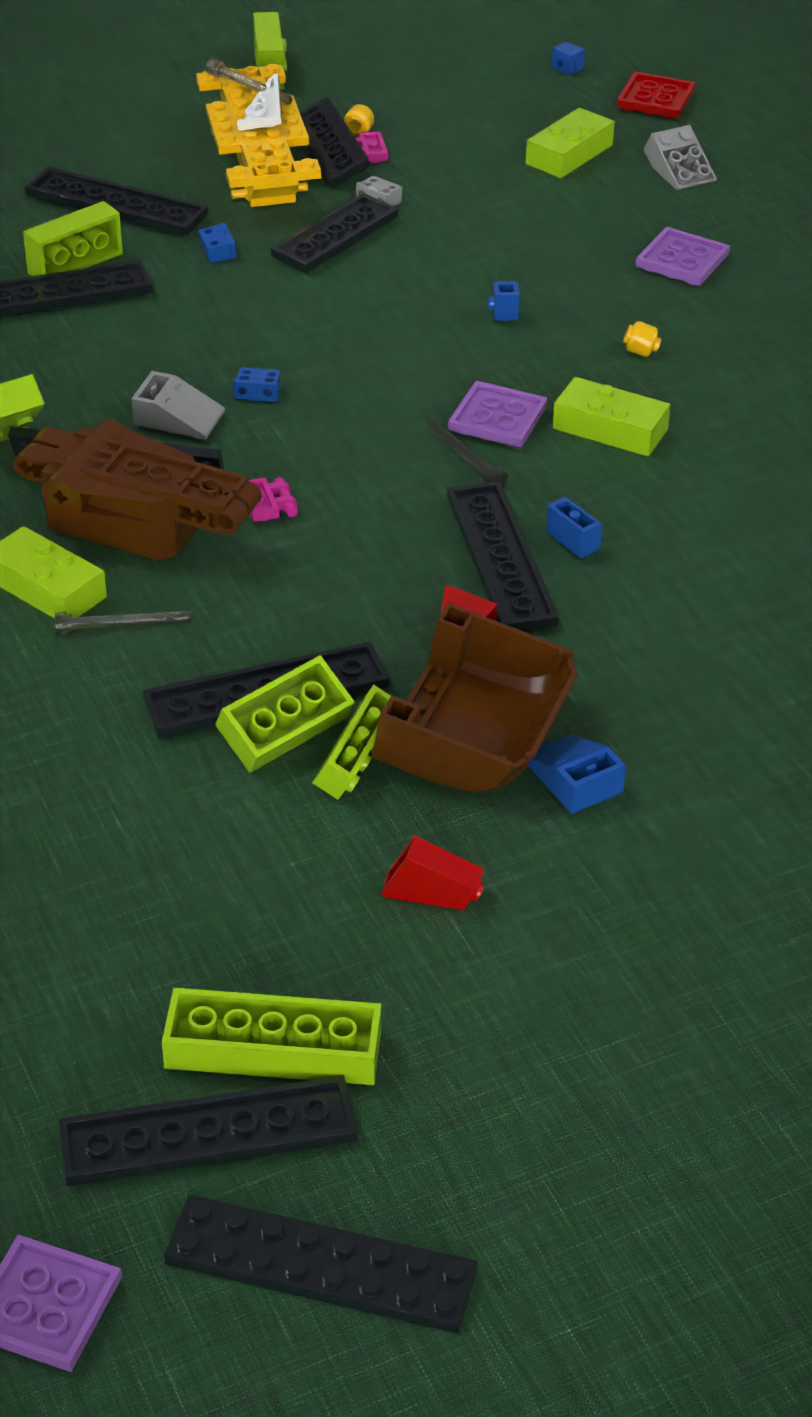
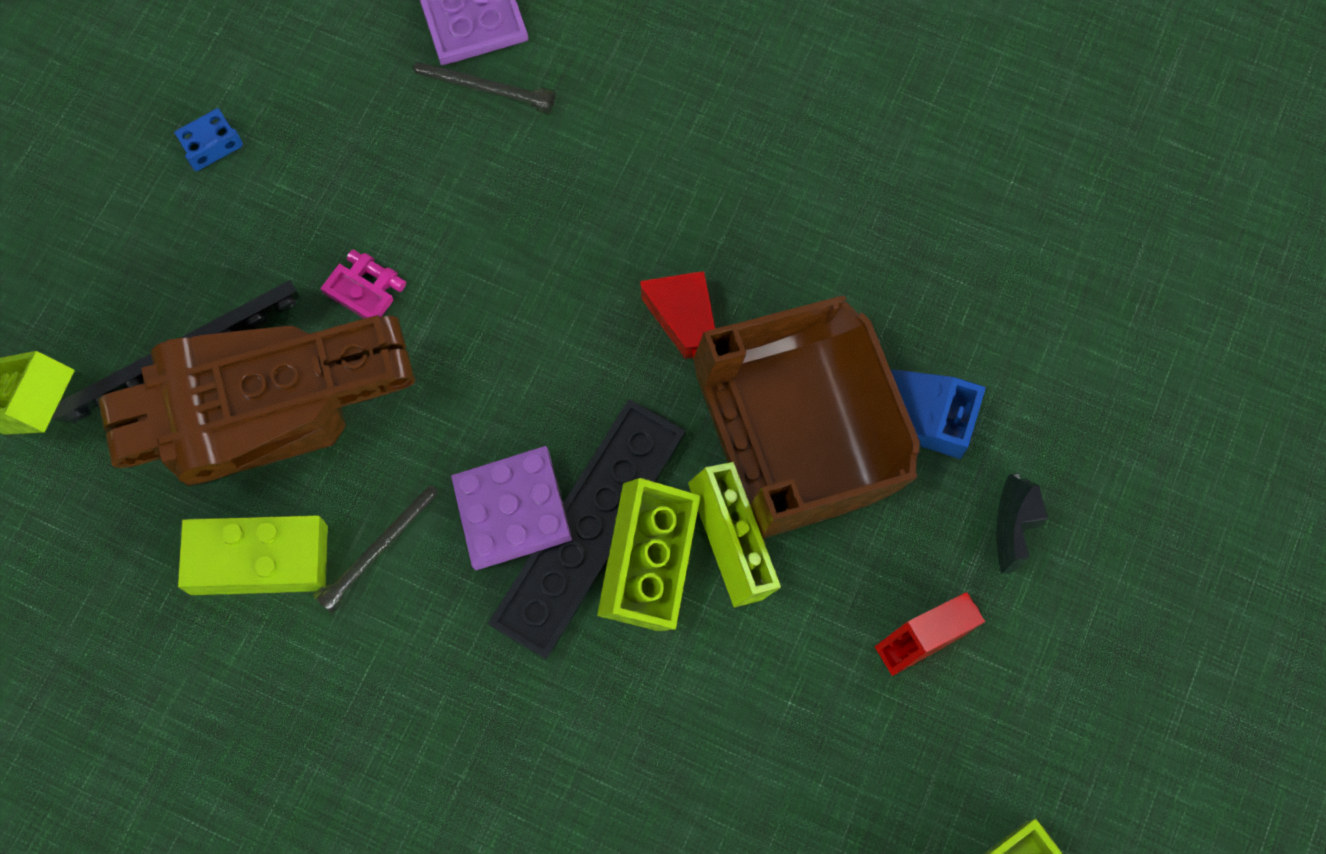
camera: 40 degrees left, 30 degrees up
(174, 406) = (162, 234): light grey slope -> none
(227, 647) = (511, 508): none -> medium lavender plate
(502, 556) = (639, 197): black plate -> none
(563, 854) = (1018, 510): none -> black slope
(573, 527) = (677, 118): blue brick -> none

